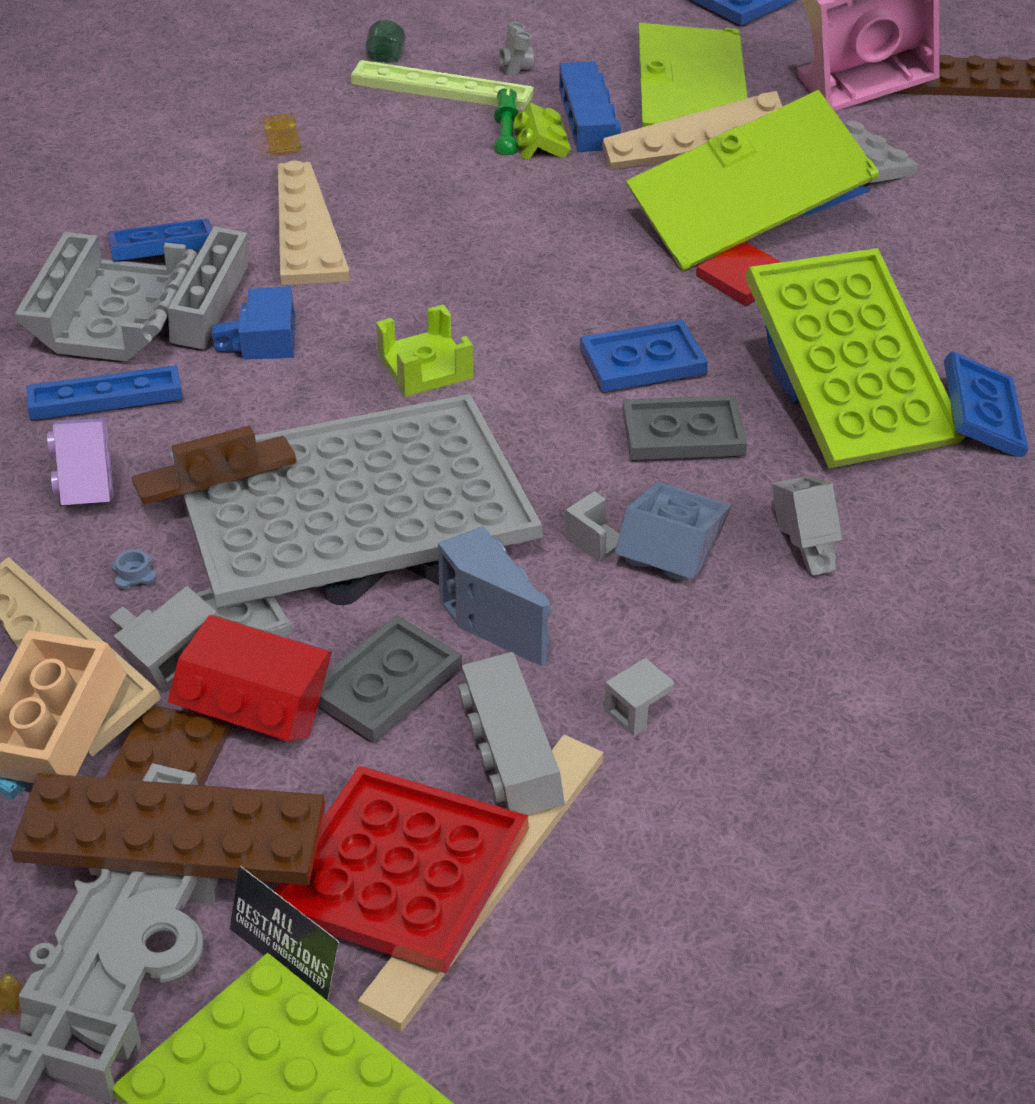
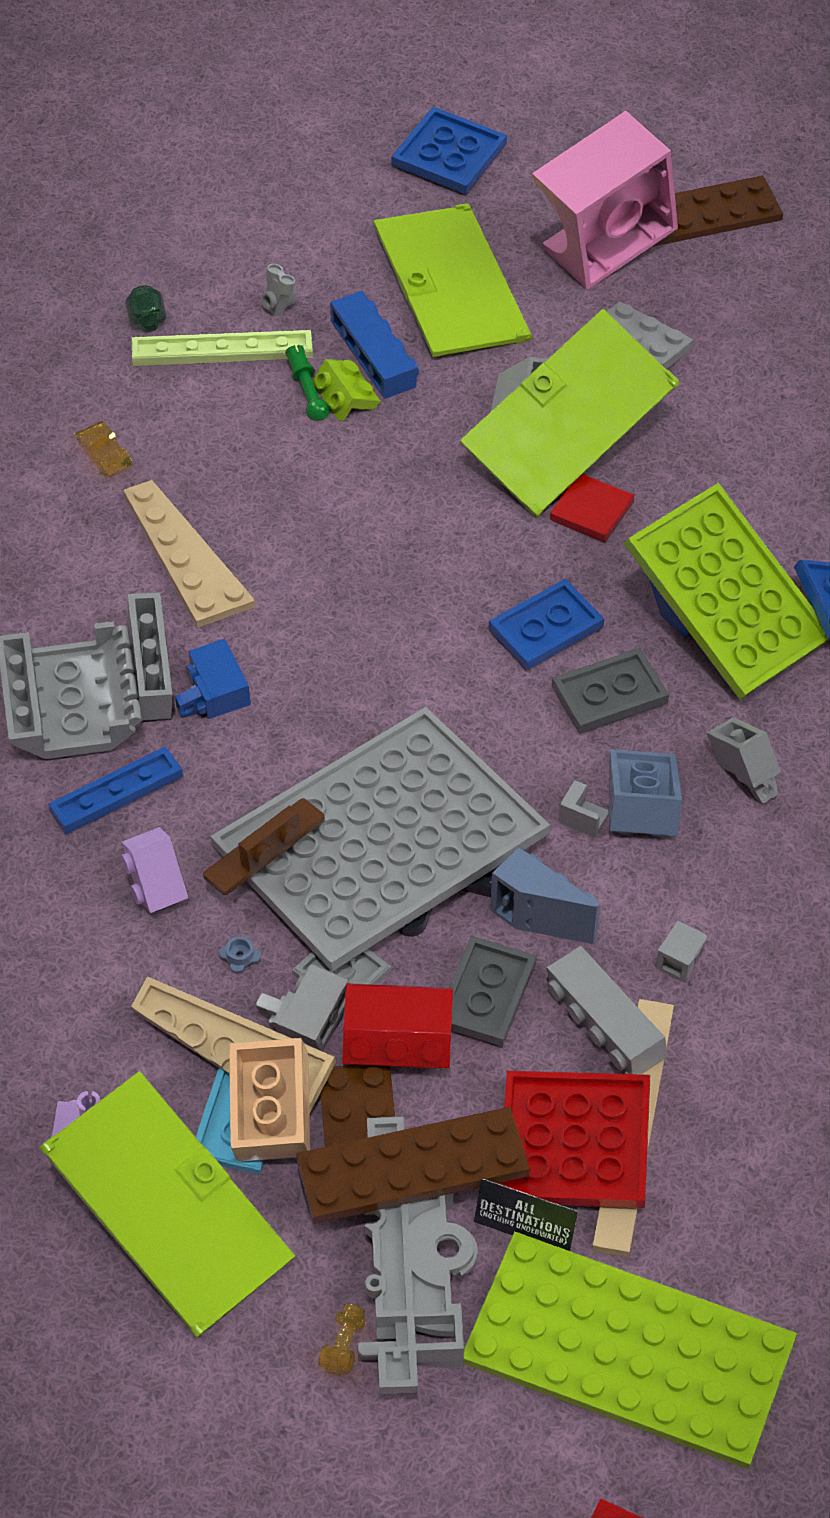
camera: 20 degrees left, 10 degrees up
(150, 240) = (69, 610): blue tile -> none
(426, 358) = (366, 676): lime panel -> none
(676, 136) = (526, 332): tan wing -> none

